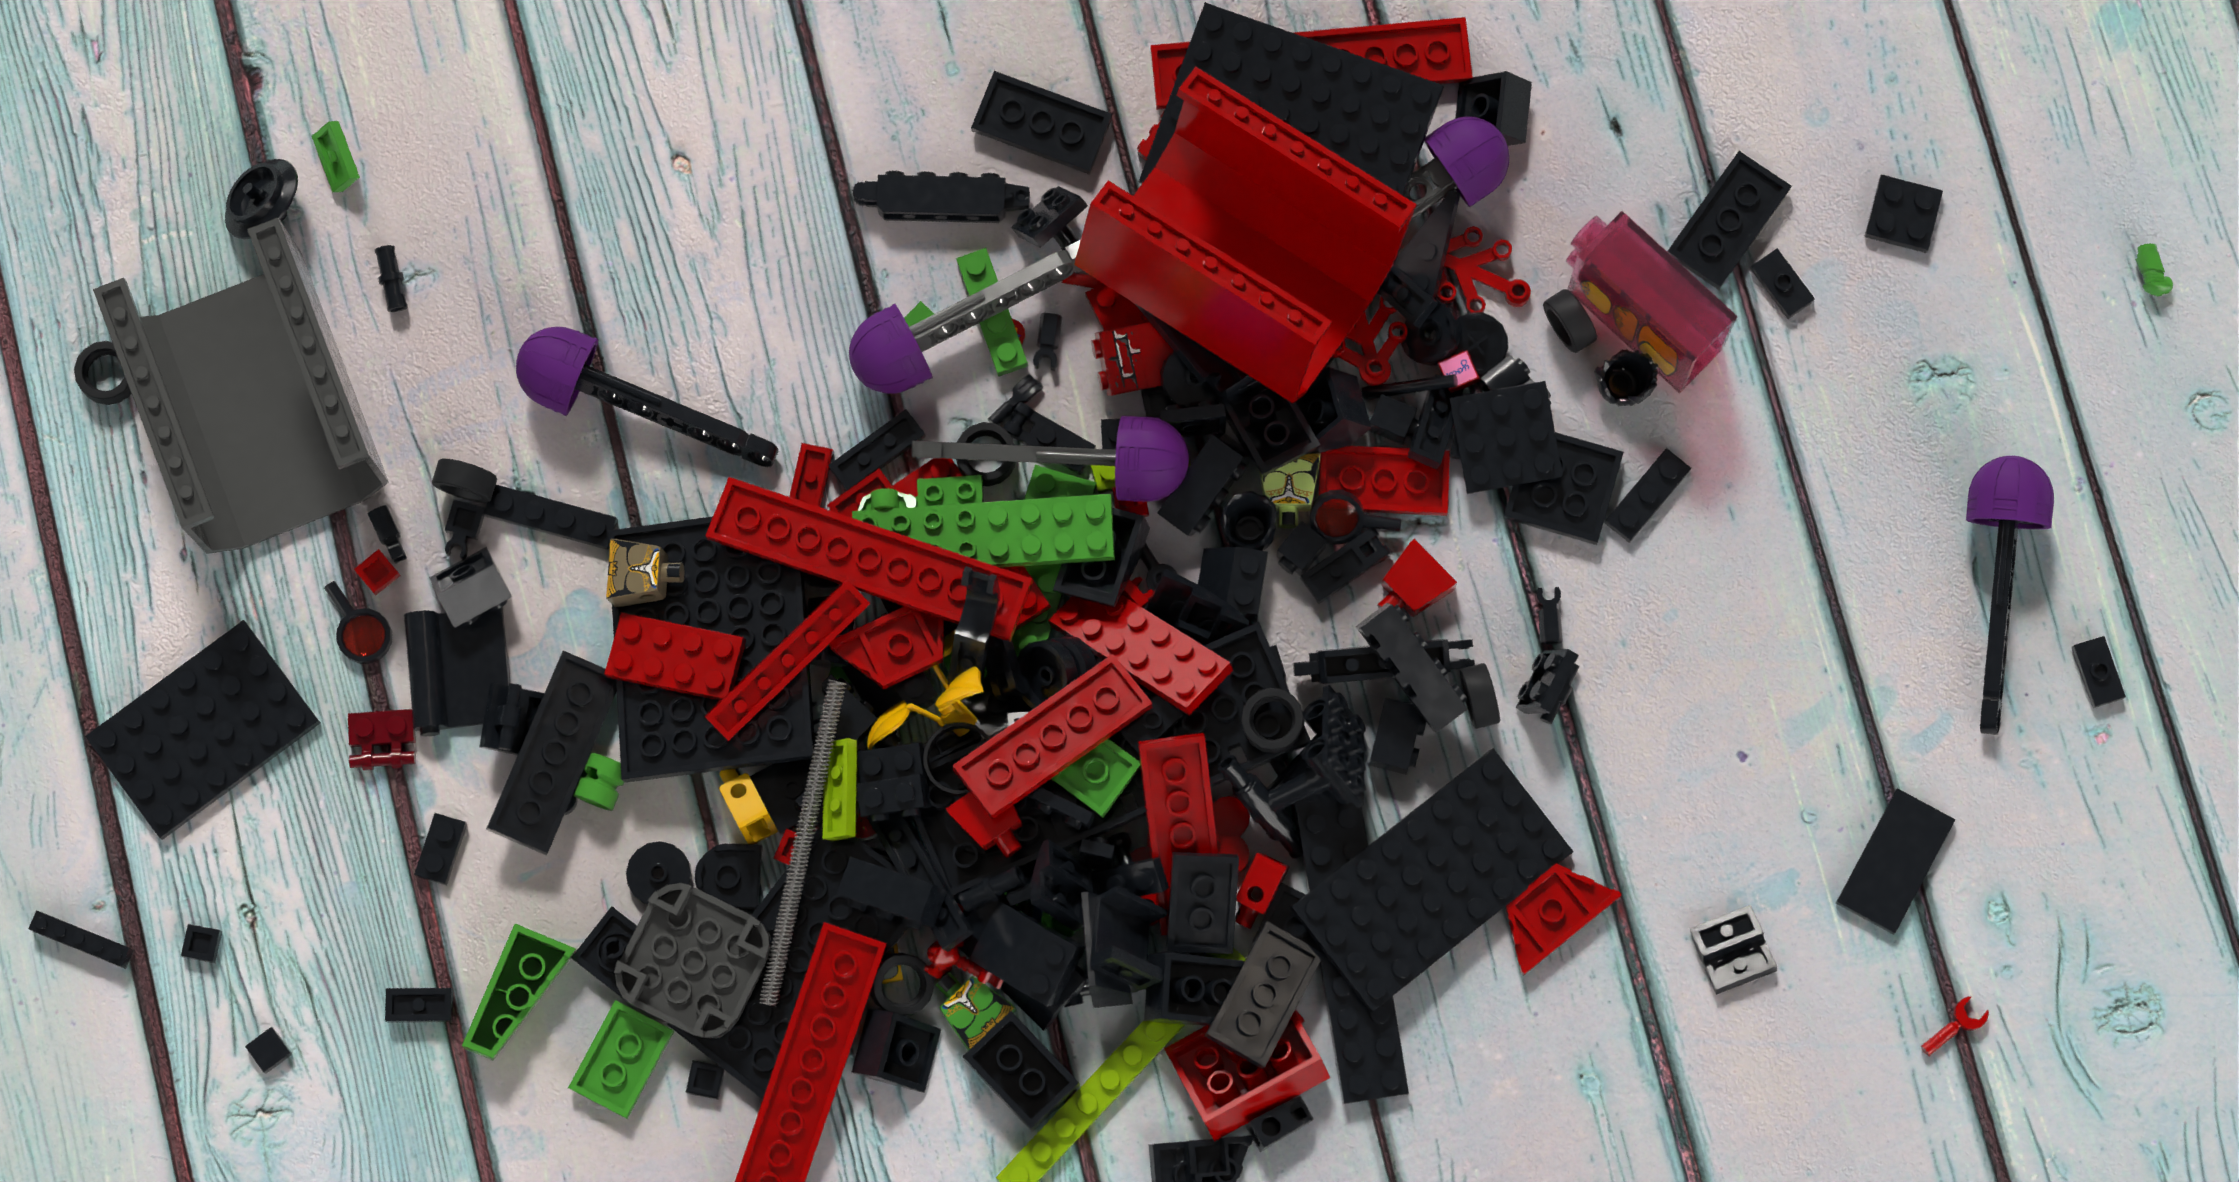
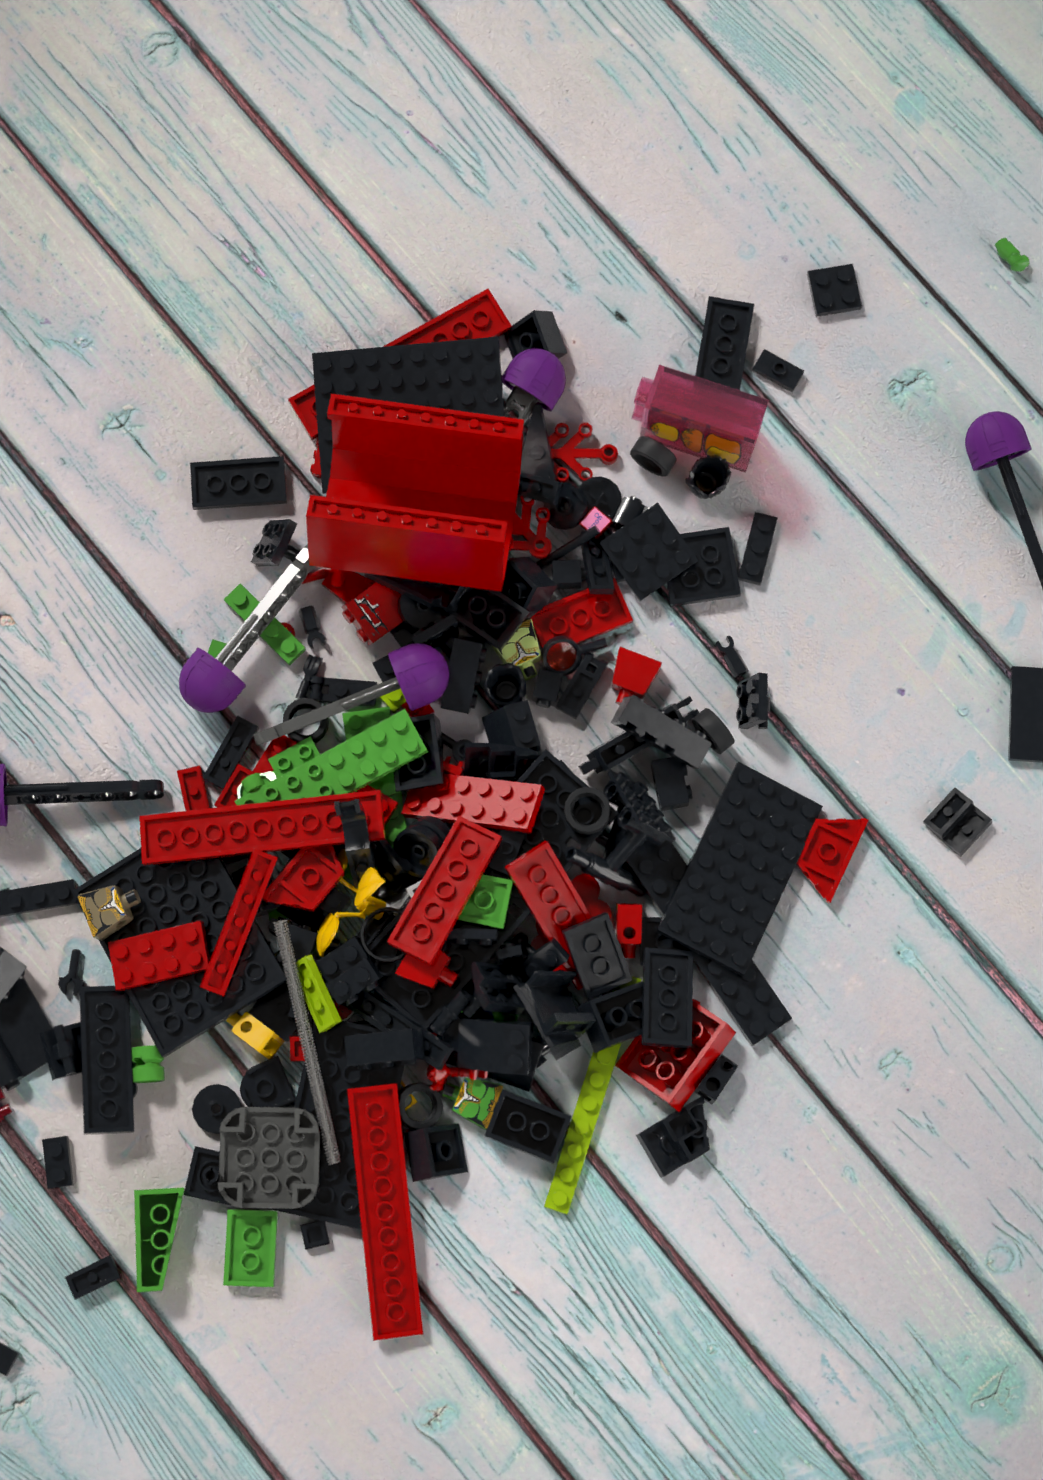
camera: 30 degrees left, 0 degrees up
(562, 631) = (72, 974): none -> black bar
(942, 197) = (194, 563): black hinge -> none

